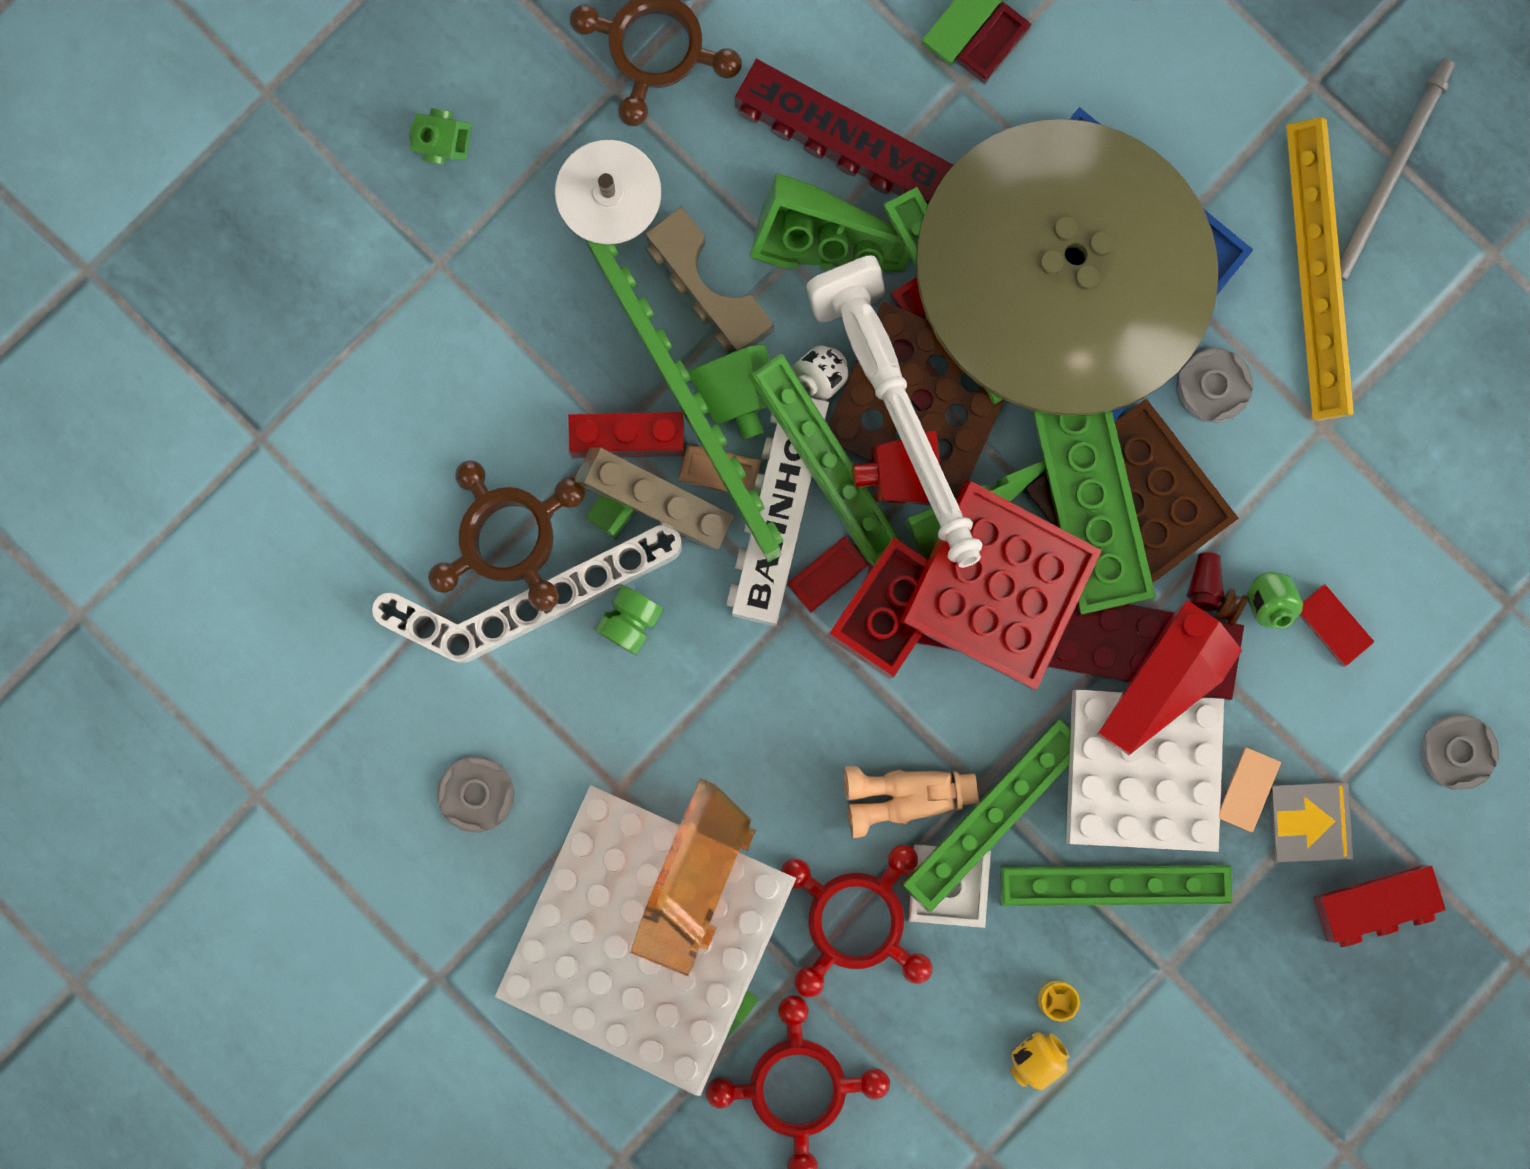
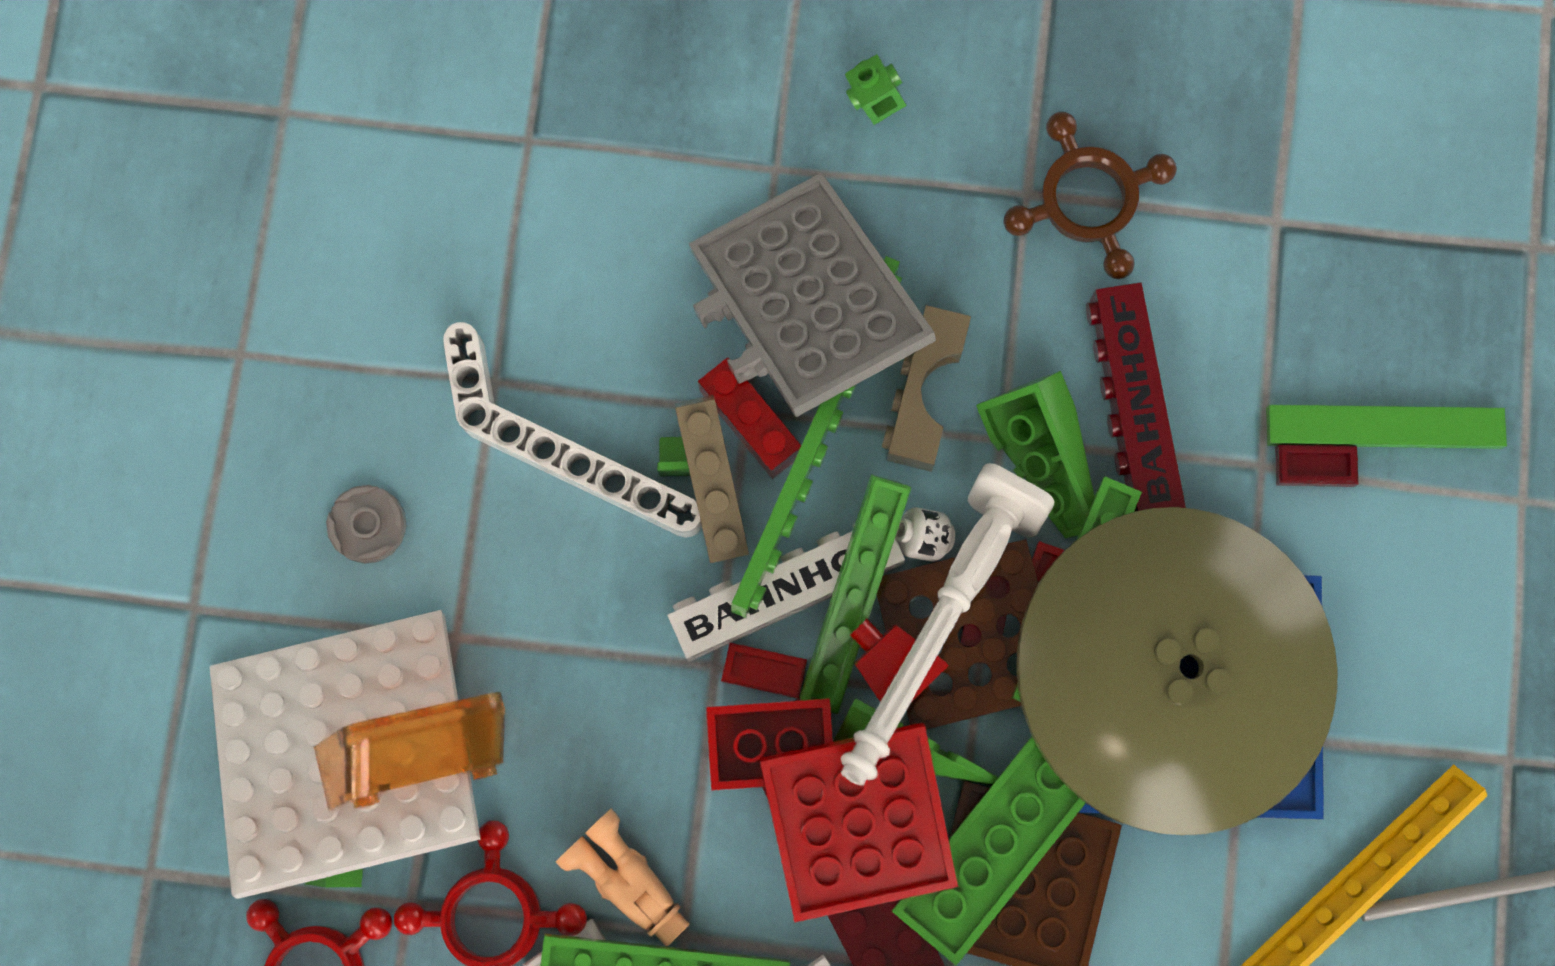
camera: 60 degrees right, 5 degrees down
(471, 476) = (621, 321): reddish brown piece -> none
(567, 316) = (807, 296): none -> light grey hinge
(608, 192) = (936, 249): white piece -> none
(629, 619) = (599, 536): bright green wheel -> none
(700, 471) = (764, 498): light nougat tile -> none
(730, 391) = (848, 471): bright green torso -> none
(1214, 385) = (1181, 876): light grey tile -> none

